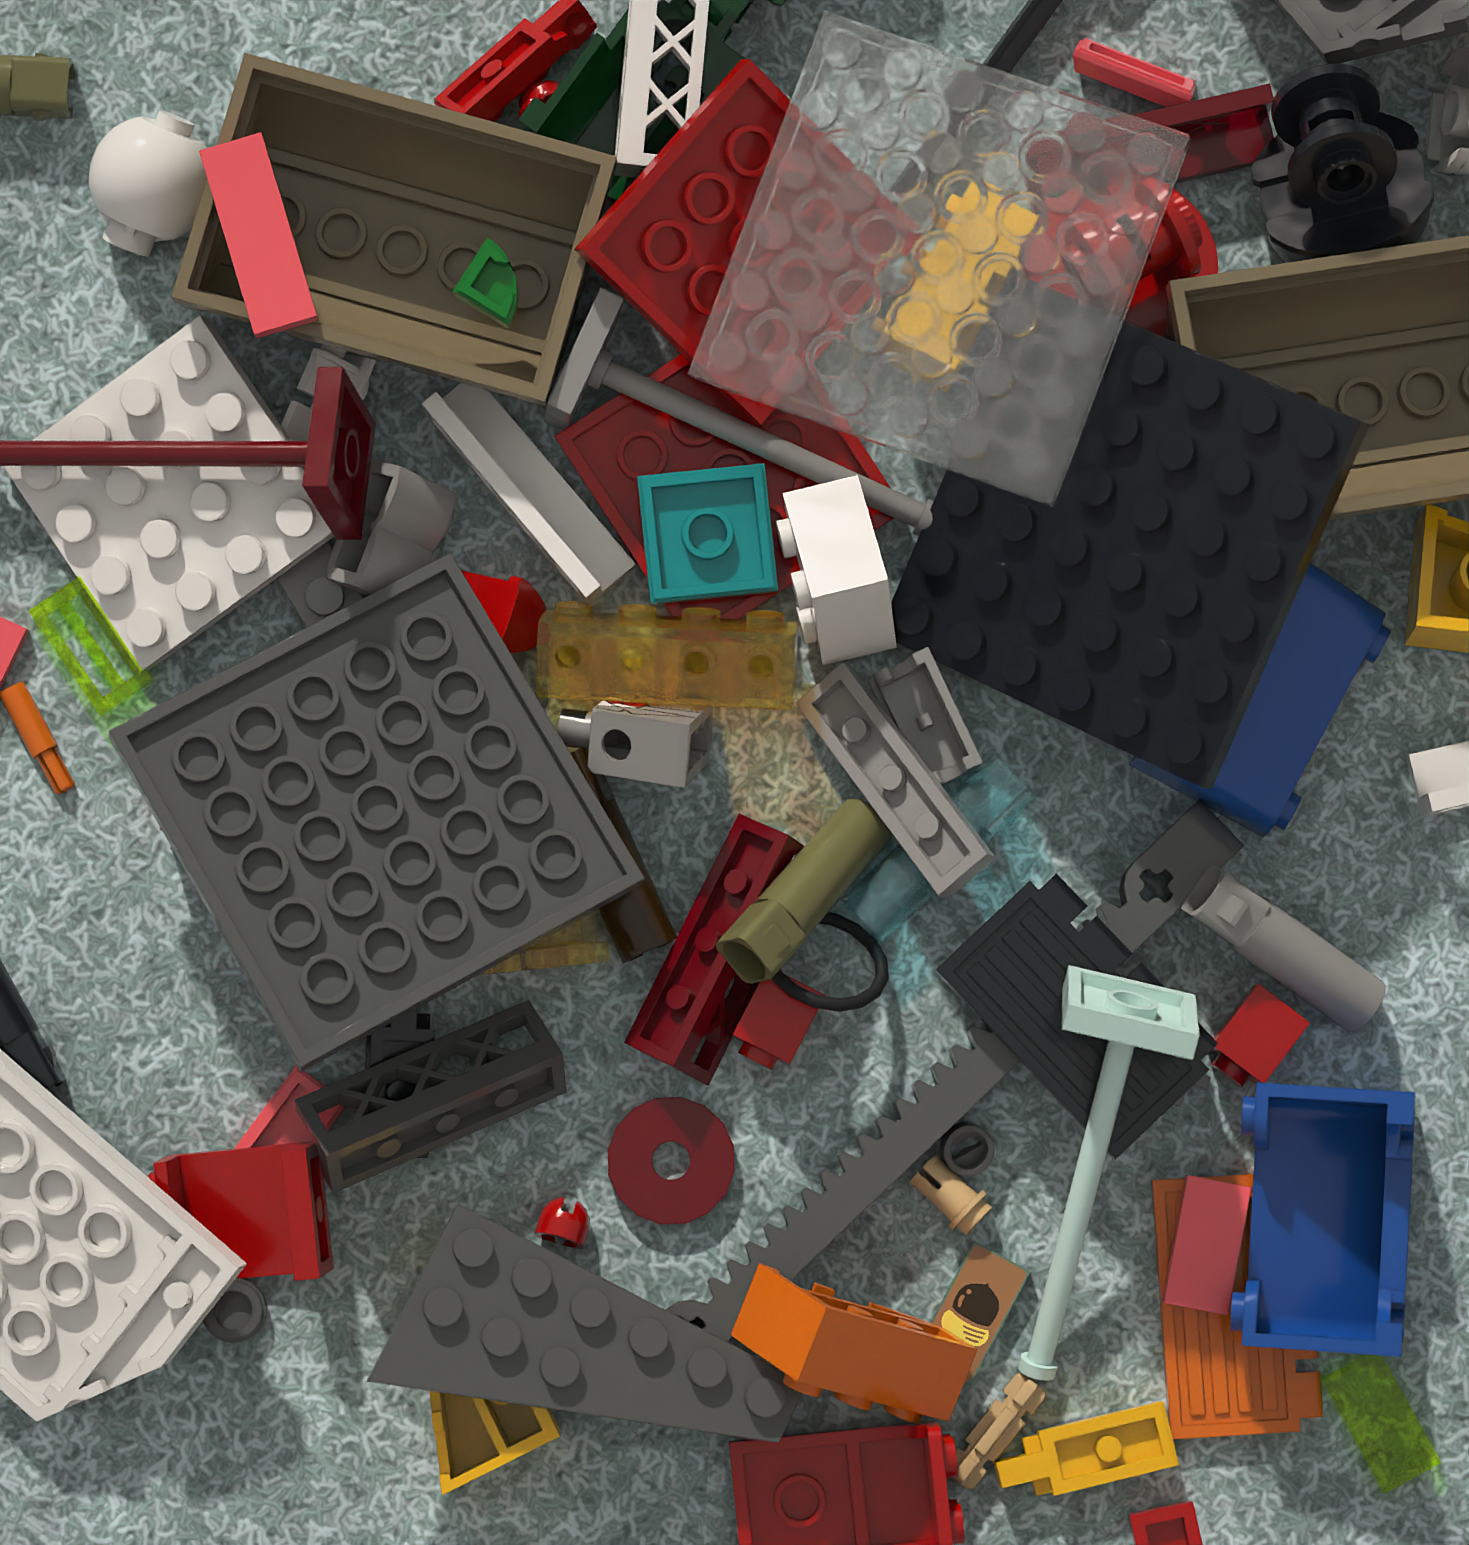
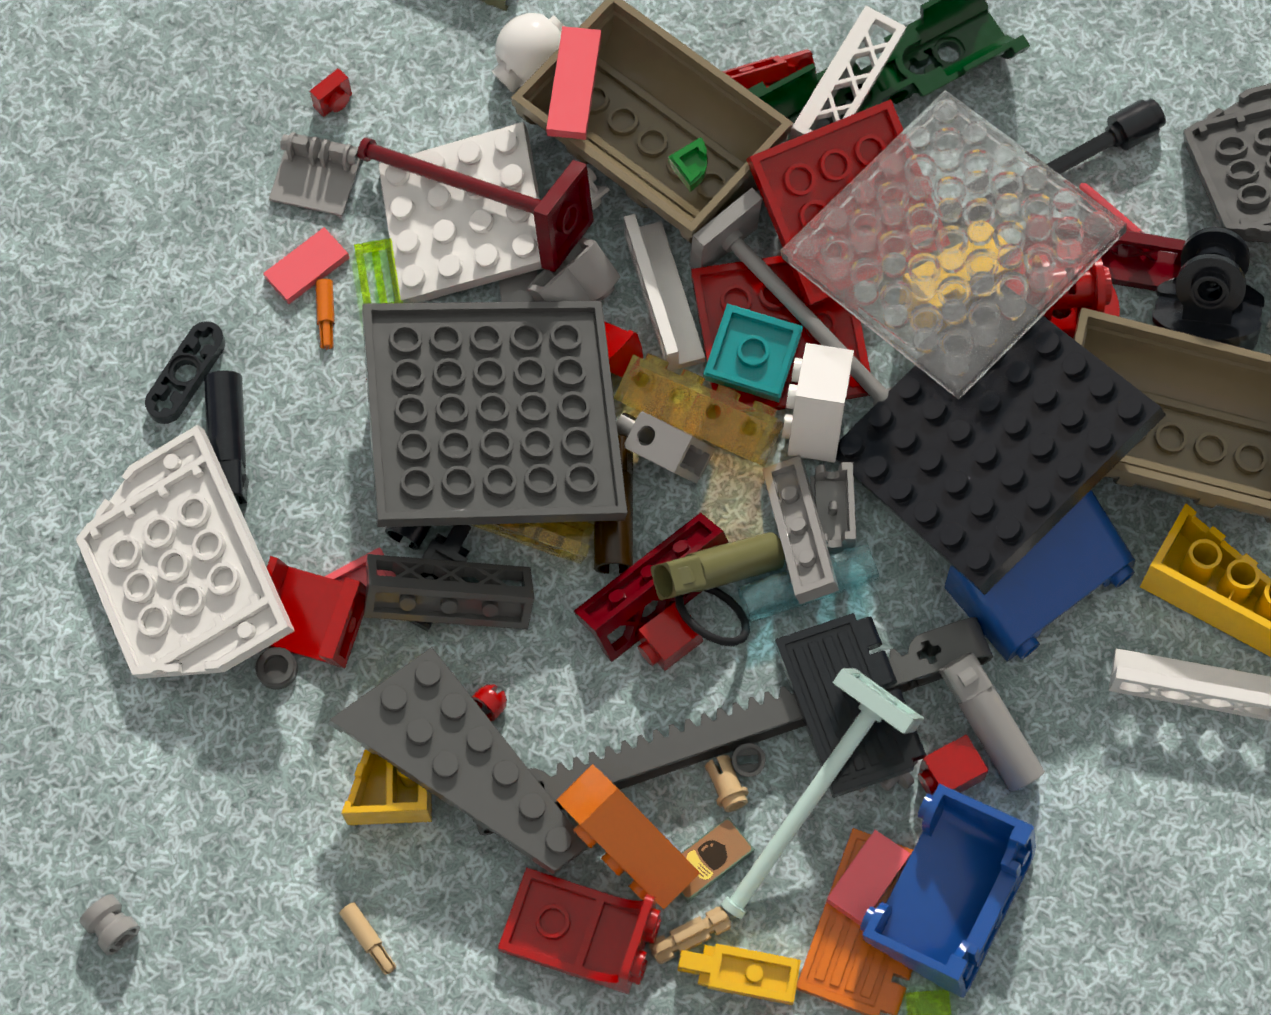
camera: 30 degrees right, 15 degrees down
(671, 1121) = (563, 670): dark red tile -> none

